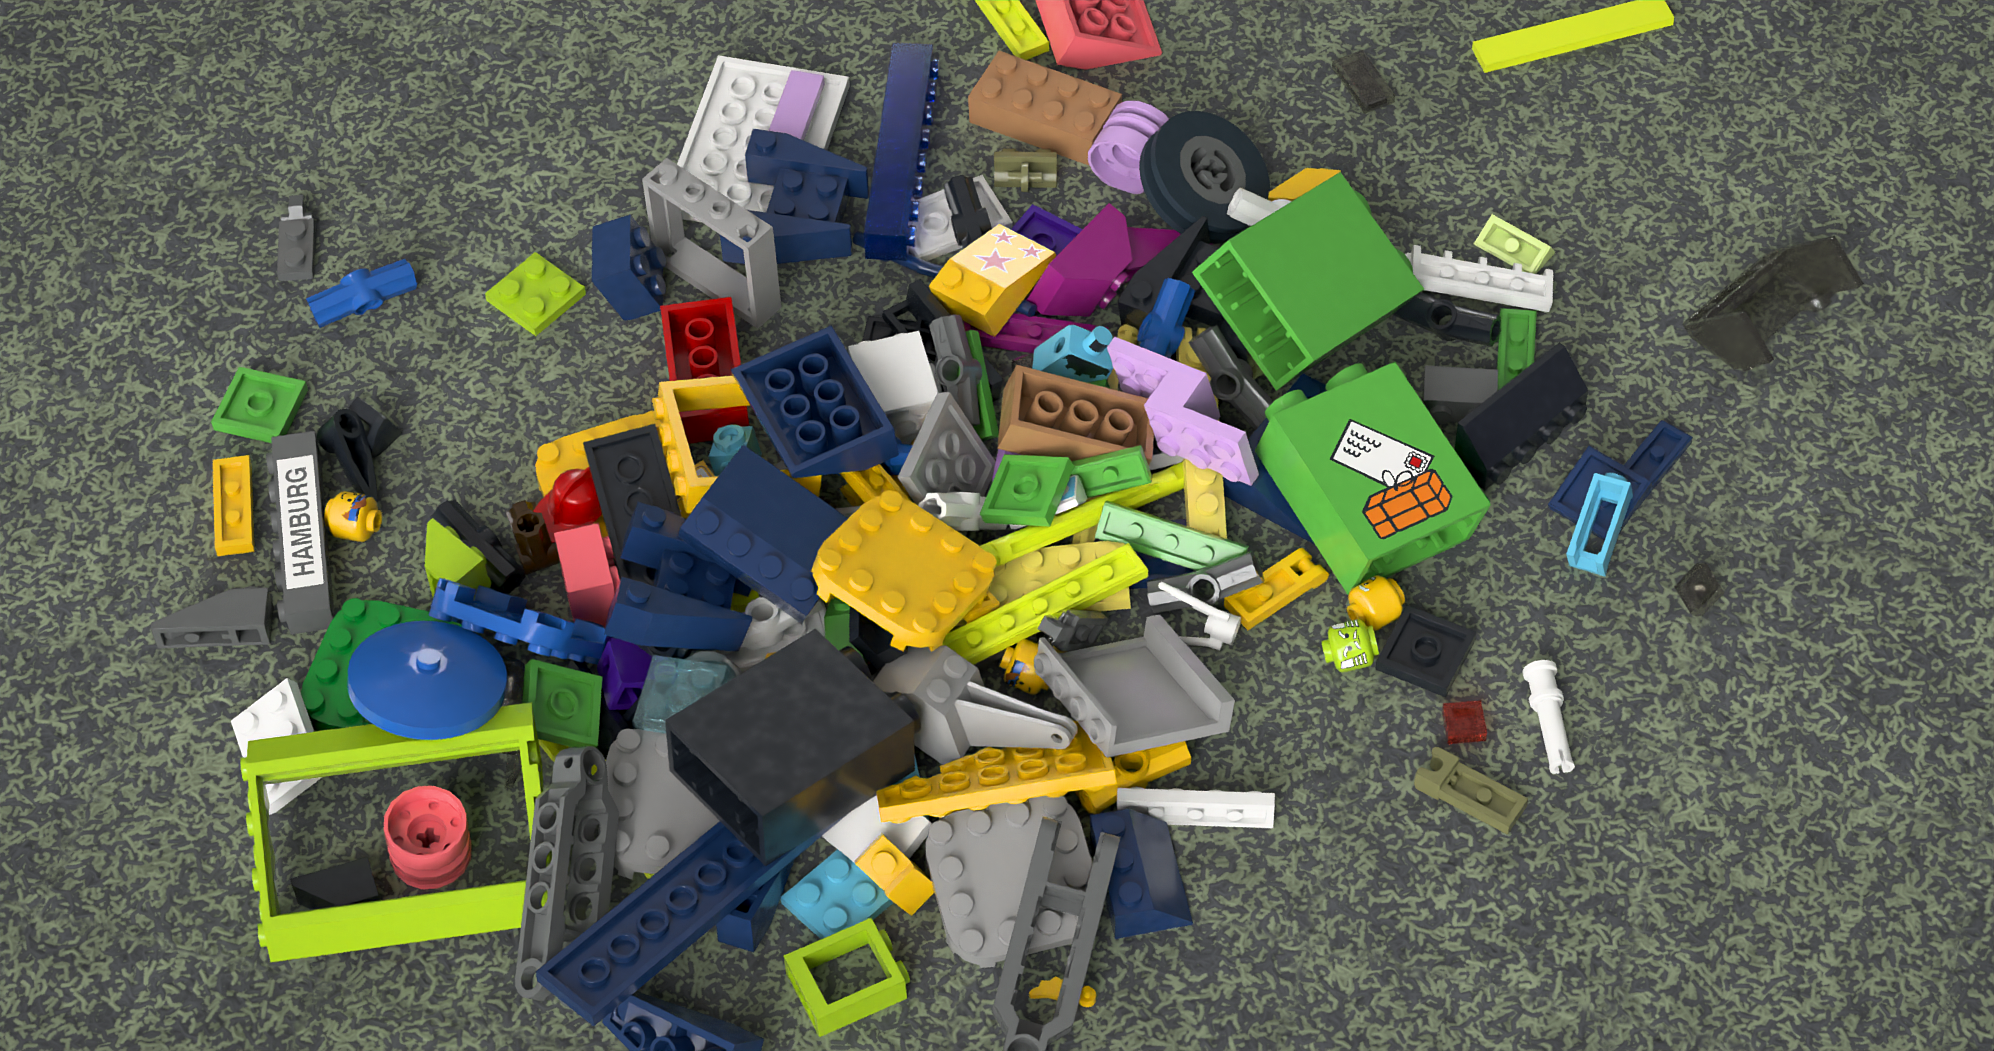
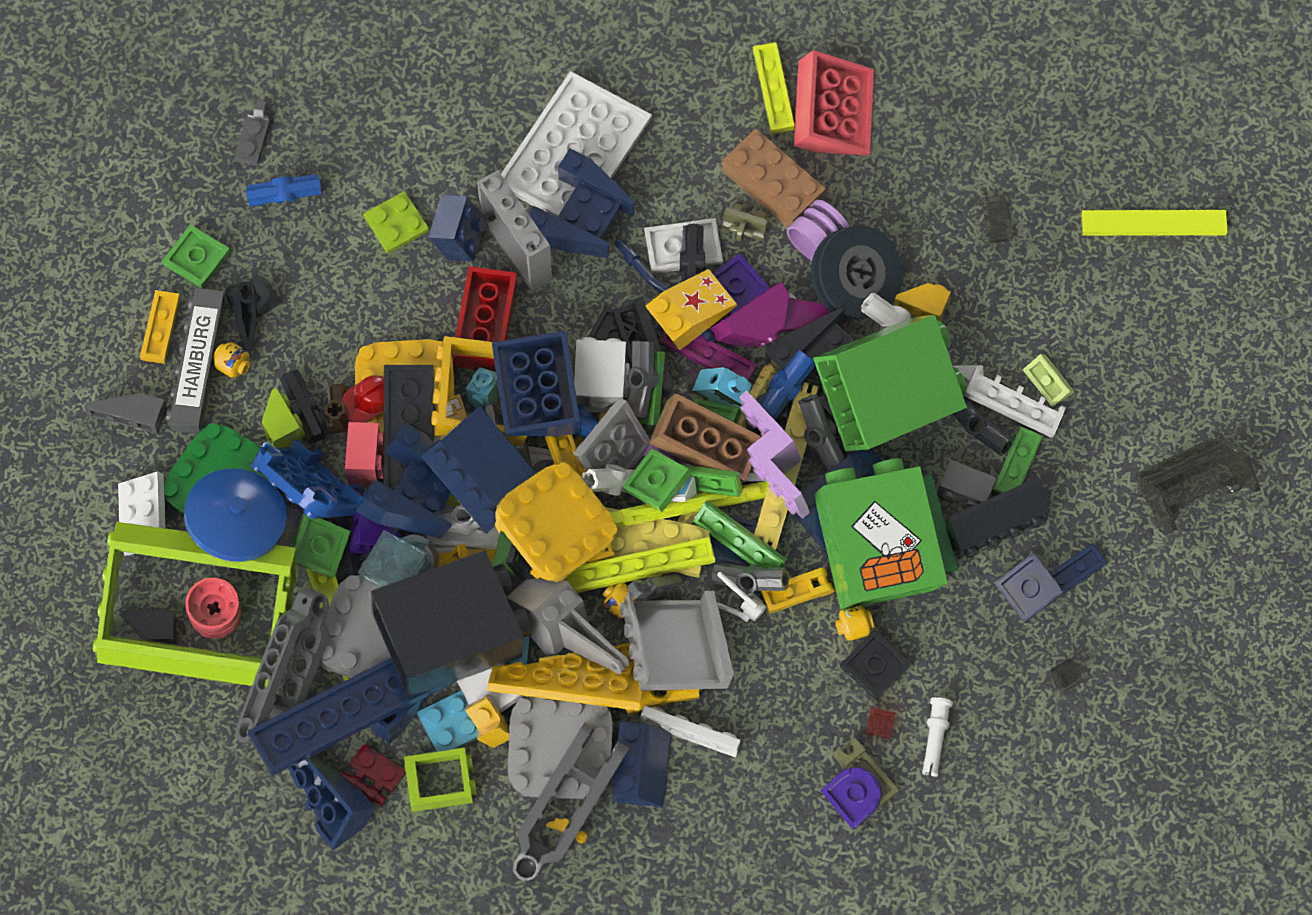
camera: 15 degrees right, 15 degrees up
(746, 992) = (376, 768): none -> dark red plate
(797, 103) = (606, 132): lavender tile -> none
(900, 152) = (665, 186): clear blue brick -> none
(1350, 645) = (827, 648): lime head -> none
(1466, 822) = (854, 795): none -> dark purple tile
(1608, 488) = (998, 623): medium azure window -> none

